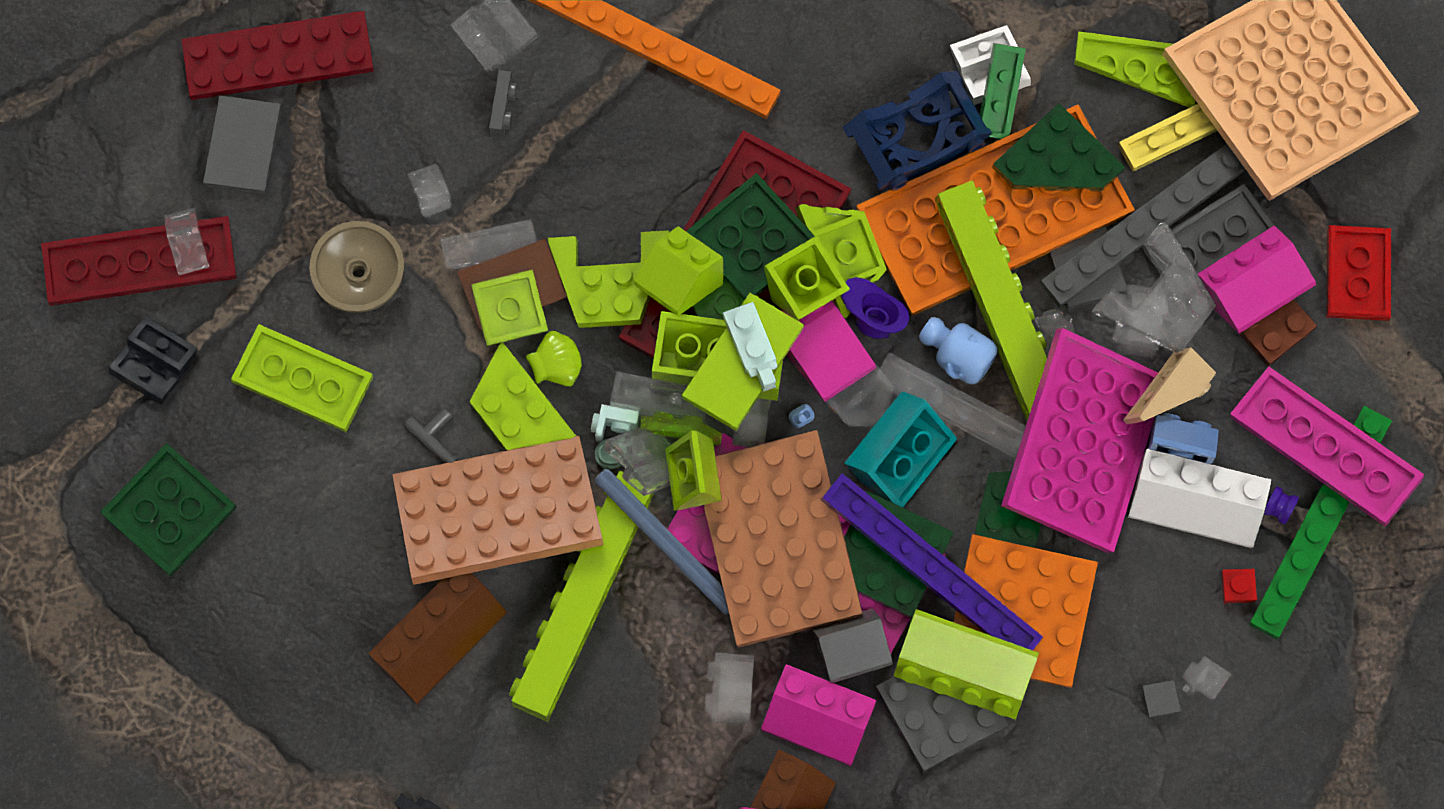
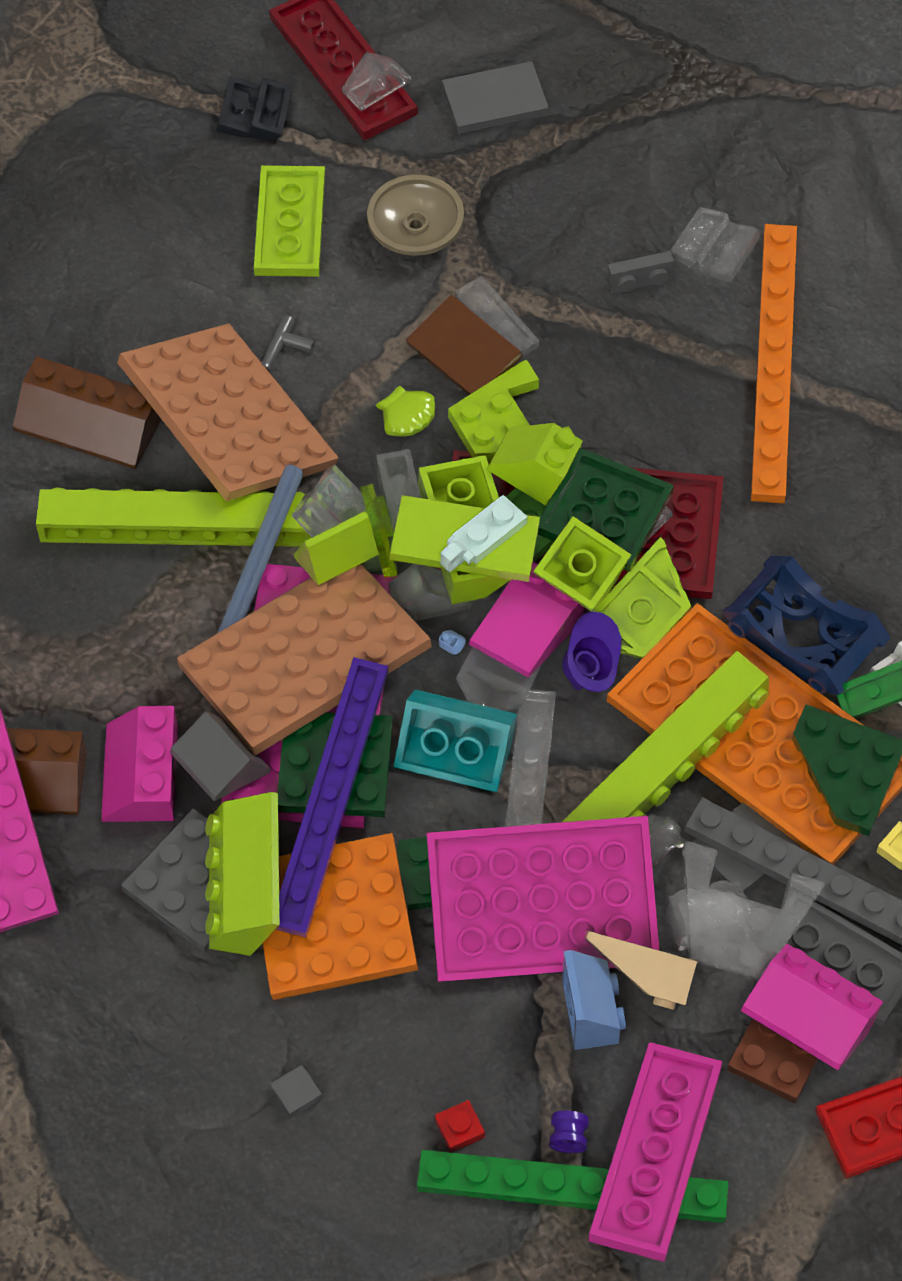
camera: 70 degrees right, 15 degrees down
(168, 509) = (116, 169): dark green plate -> none
(277, 55) = (597, 92): dark red plate -> none
(430, 190) = (523, 250): clear slope -> none
(509, 307) = (437, 351): lime tile -> none
(516, 406) = (346, 396): lime wing -> none
(617, 418) = (362, 471): light aqua bracket -> none
(731, 688) = (135, 678): clear brick -> none
(961, 351) = (587, 751): light blue piece -> none
(1199, 498) = (537, 1044): white slope -> none
(1205, 678) = (332, 1117): clear bracket -> none

